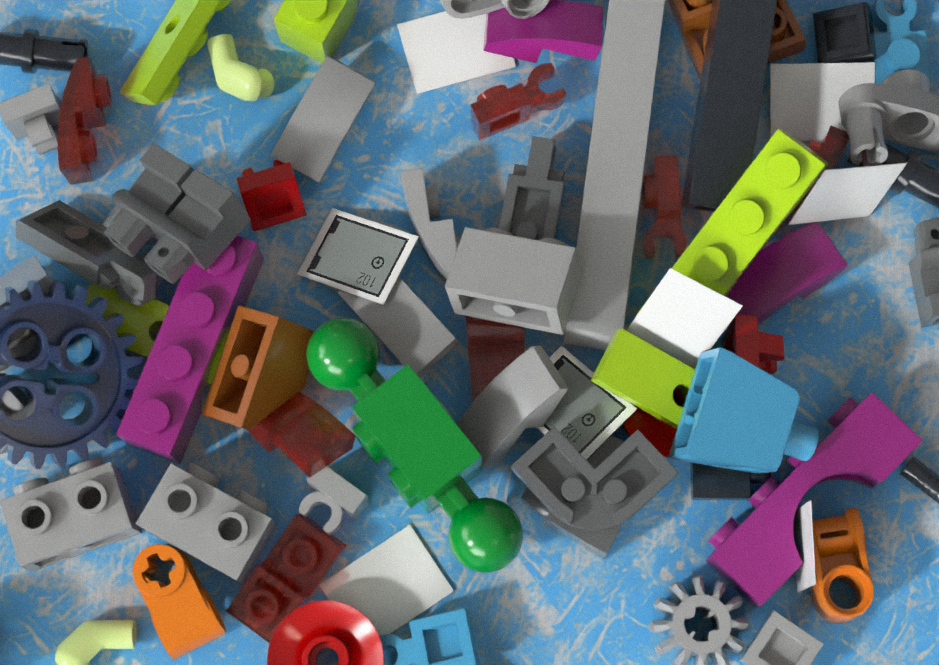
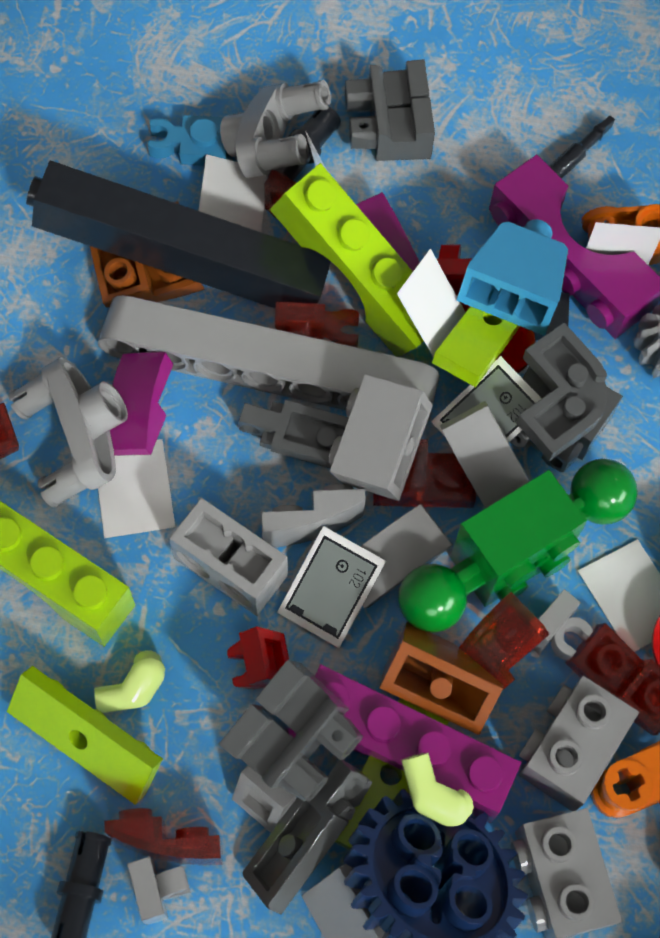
camera: 90 degrees left, 10 degrees down
(120, 361) = (433, 798): none -> yellowish green arm
(323, 118) = (195, 603): light grey slope -> none
(372, 142) = (229, 556): none -> light grey brick
(505, 108) = (205, 447): clear red plate -> none
(845, 34) = (178, 173): black tile -> none

